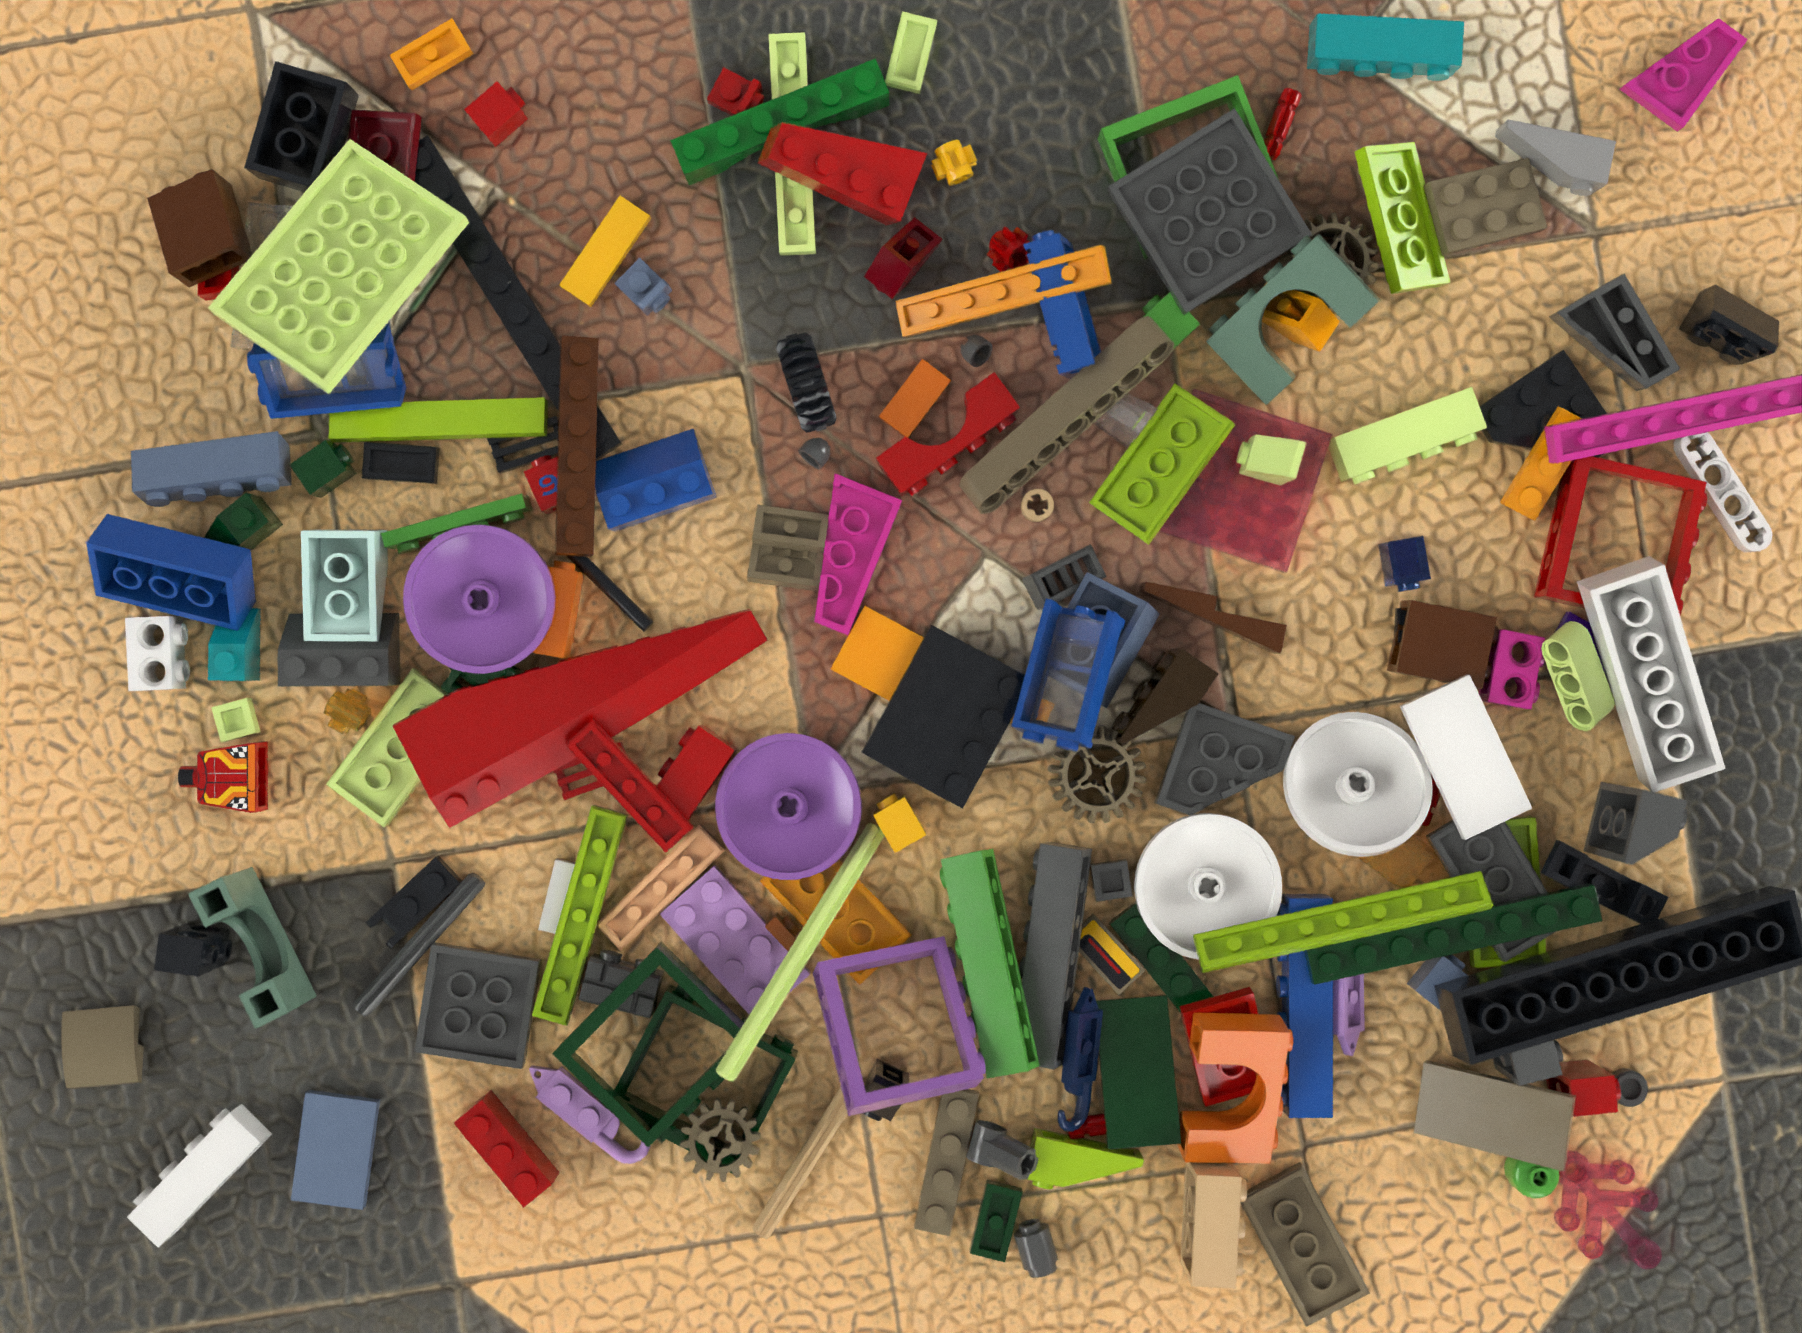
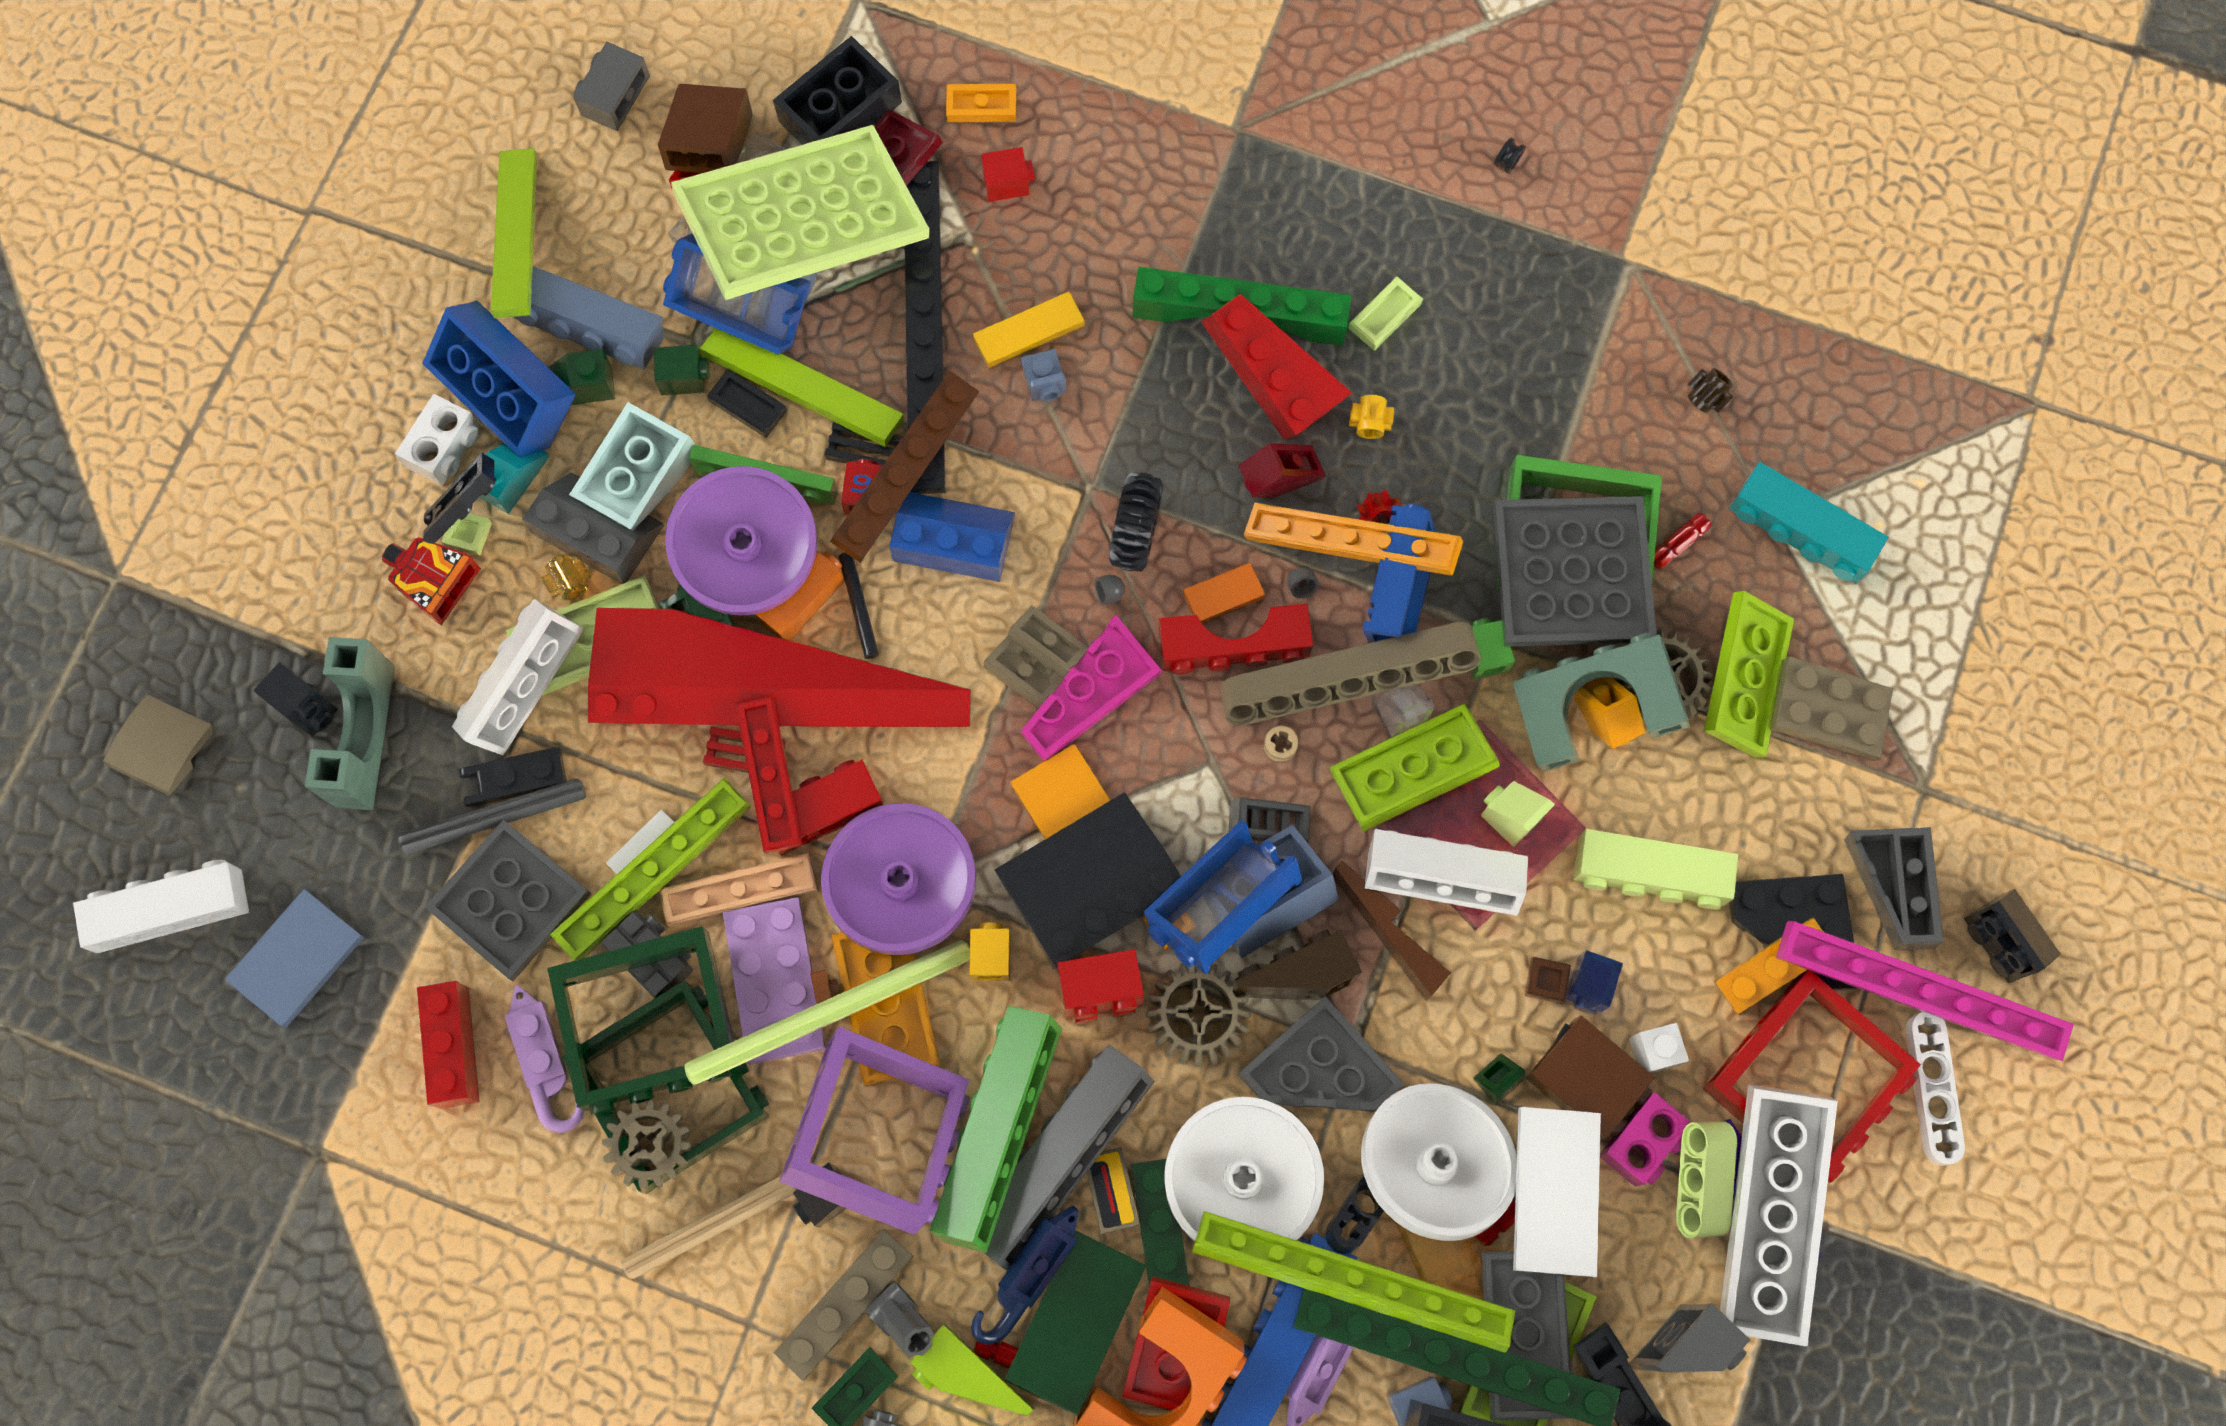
camera: 30 degrees right, 15 degrees down
(85, 233) = (611, 86): none -> dark grey brick
(95, 428) = (514, 233): none -> lime tile
(212, 700) = (459, 498): none -> black hinge
(364, 824) = (516, 678): none -> white slope
(734, 93) = (1215, 262): red bracket -> none
(794, 200) = (1215, 372): yellowish green plate -> none
(1007, 801) = (1101, 986): none -> red brick
(1111, 880) = (1155, 1122): dark grey plate -> none
(1239, 543) = (1446, 872): none -> white brick
(1303, 875) = (1348, 1211): none -> black beam
(1364, 580) = (1547, 980): none -> reddish brown tile
(1366, 684) = (1500, 1078): none -> dark green slope
(1486, 589) = (1659, 1048): none -> white brick
(1561, 155) = (1925, 703): light grey slope -> none
(1685, 76) = (2074, 696): dark pink wing -> none

